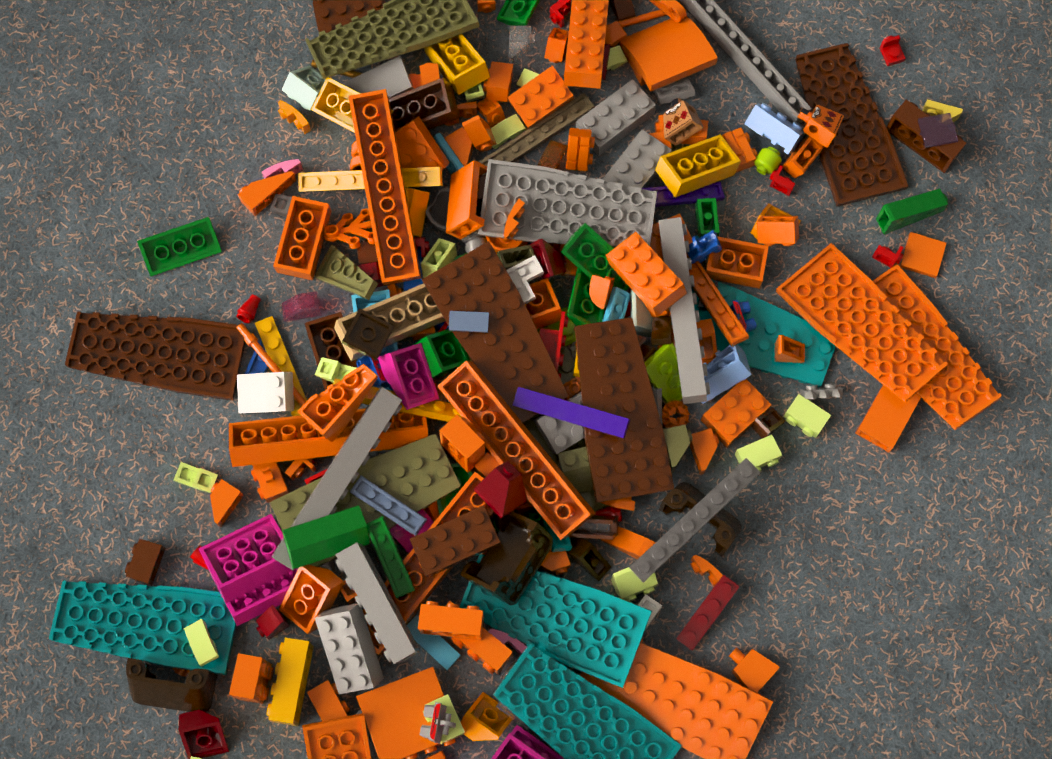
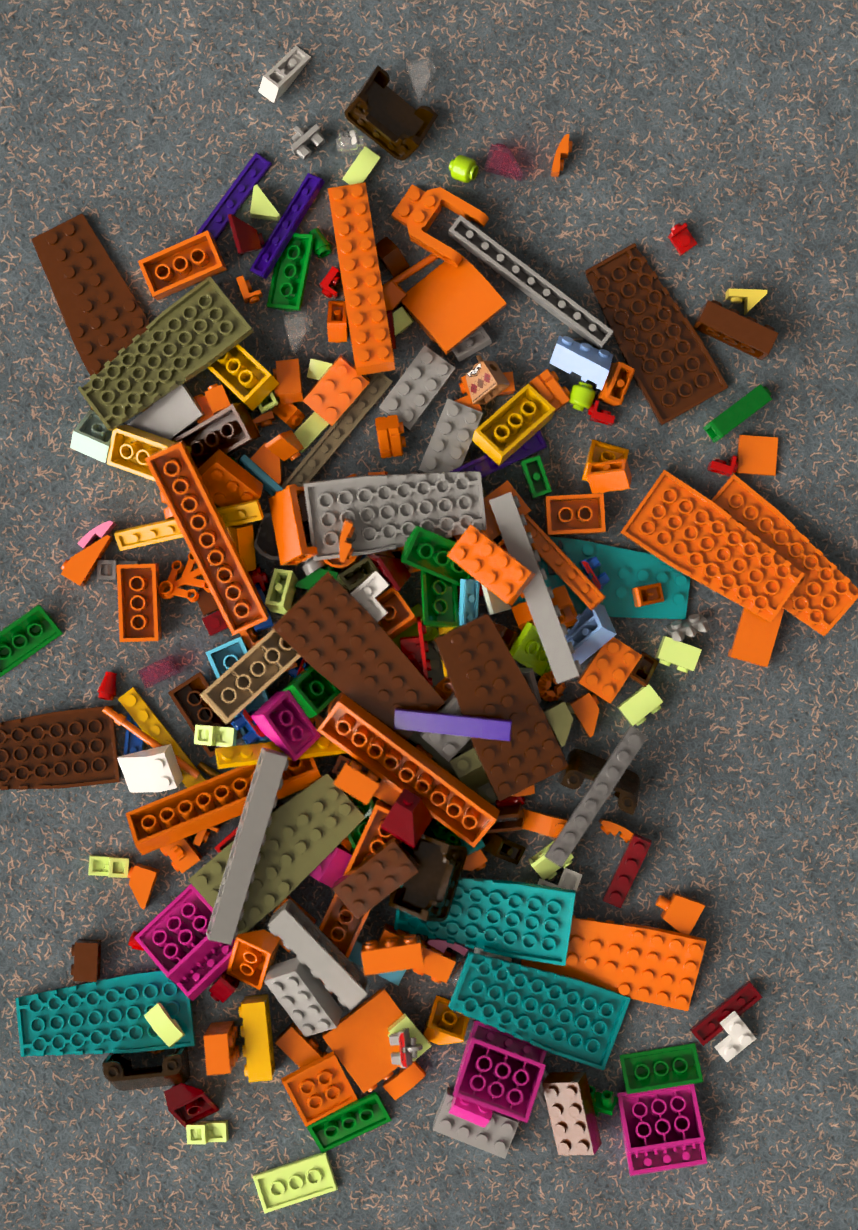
camera: 20 degrees left, 15 degrees up
(293, 115) = (85, 470): light orange slope -> none
(325, 536) = (252, 905): green slope -> none
(336, 405) = (226, 776): orange wedge -> none
(345, 274) = (189, 629): olive wing -> none
(368, 334) = (235, 699): dark brown tile -> none
(388, 505) = (302, 856): sand blue tile -> none
(390, 557) = (317, 904): green tile -> none
(468, 321) = (330, 659): sand blue tile -> none
(553, 155) = (363, 450): clear orange slope -> none
(600, 290) = (449, 587): orange brick -> none
(661, 330) = (520, 614): dark brown tile -> none
(703, 246) = (540, 513): blue hips -> none
(821, 124) = (628, 348): orange torso -> none
(937, 130) = (747, 327): piece -> none

